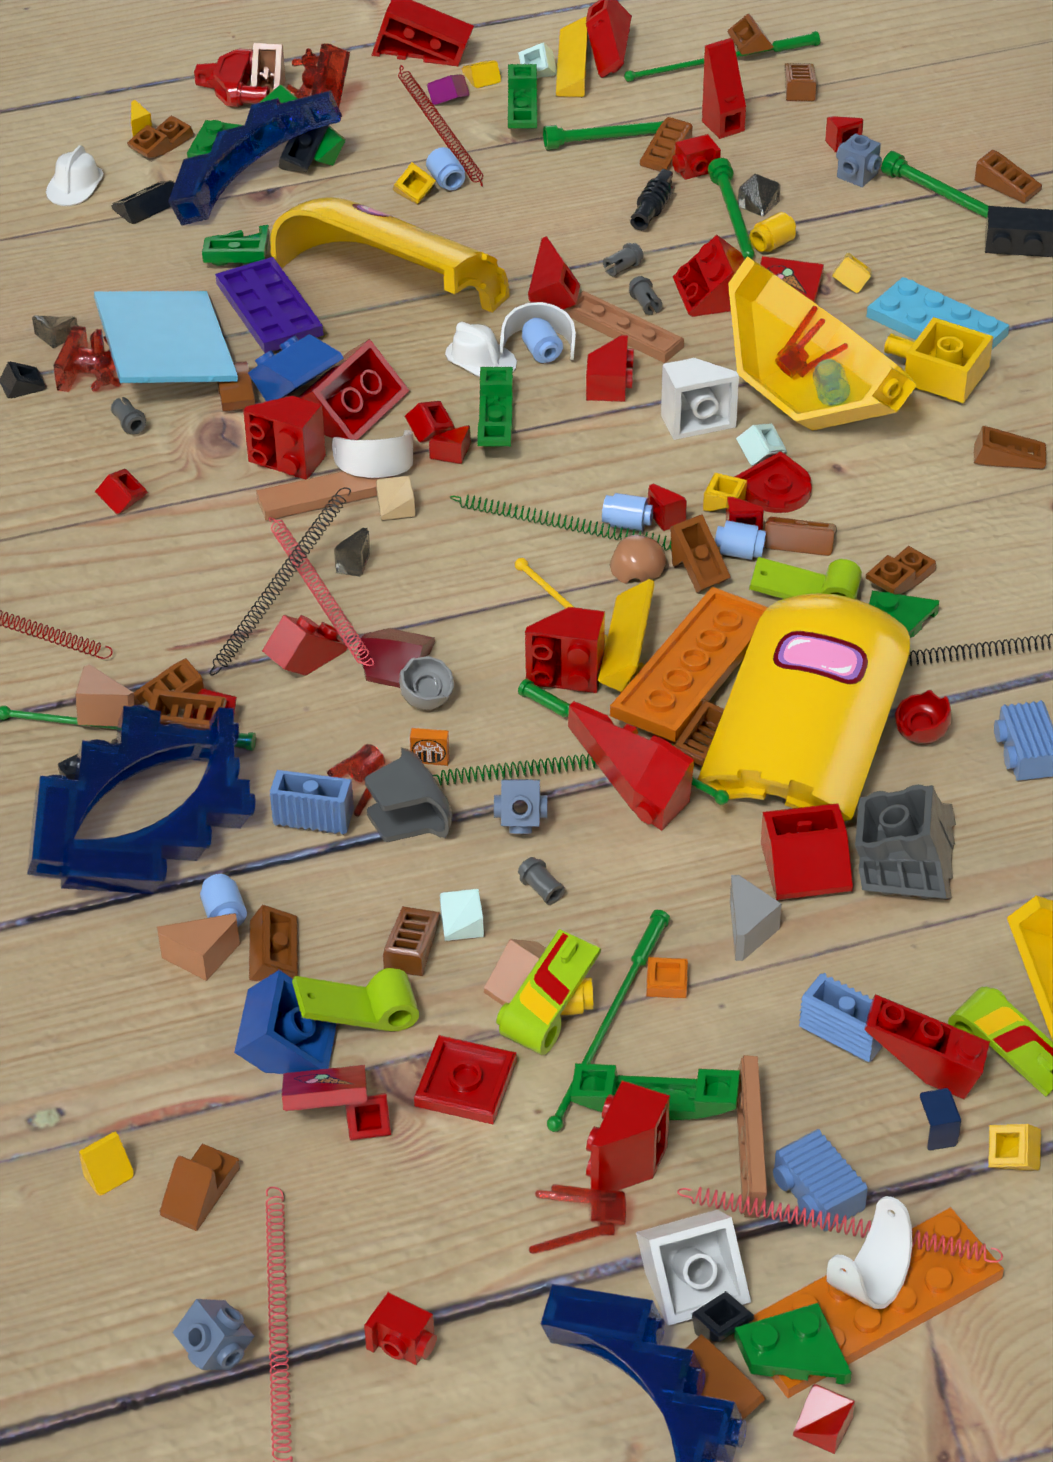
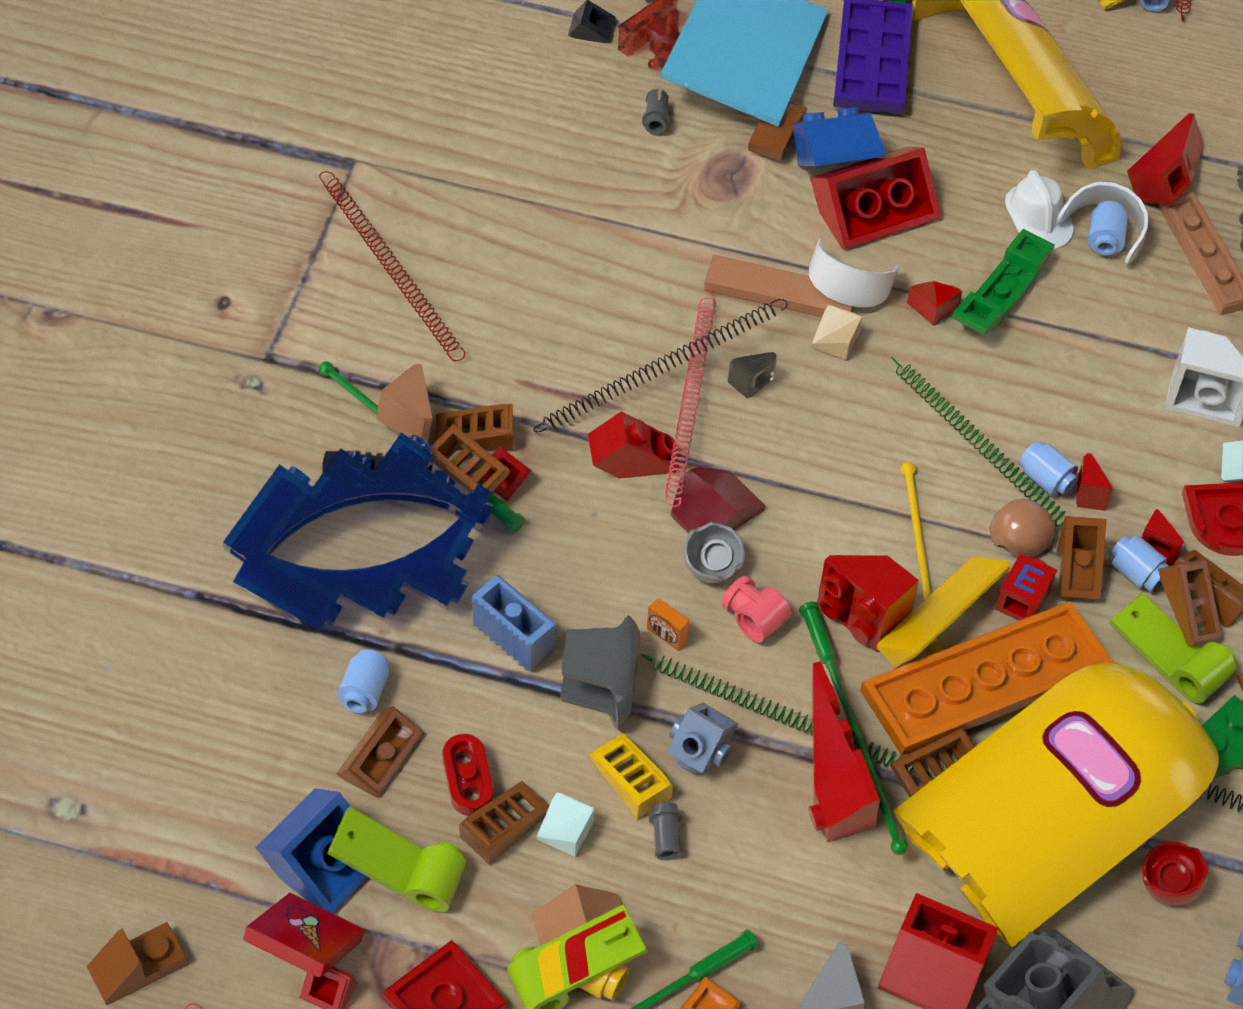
camera: 30 degrees right, 10 degrees up
(106, 1164) = (73, 891): yellow slope -> none
(120, 490) = (592, 189): red slope -> none
(199, 944) = (315, 715): nougat slope -> none
(286, 435) = (775, 212): red slope -> none
(358, 766) = (592, 609): clear red plant -> none
(365, 925) = (468, 777): none -> red plate
(429, 420) = (933, 262): red slope -> none
(489, 705) = (756, 611): none -> coral piece
(499, 870) = (638, 803): none -> yellow slope
(608, 372) = (1149, 297): red slope -> none
(673, 594) = (1025, 588): none -> red brick
(719, 488) = (1165, 496): yellow slope -> none
(797, 542) = (1180, 584): none -> dark orange slope

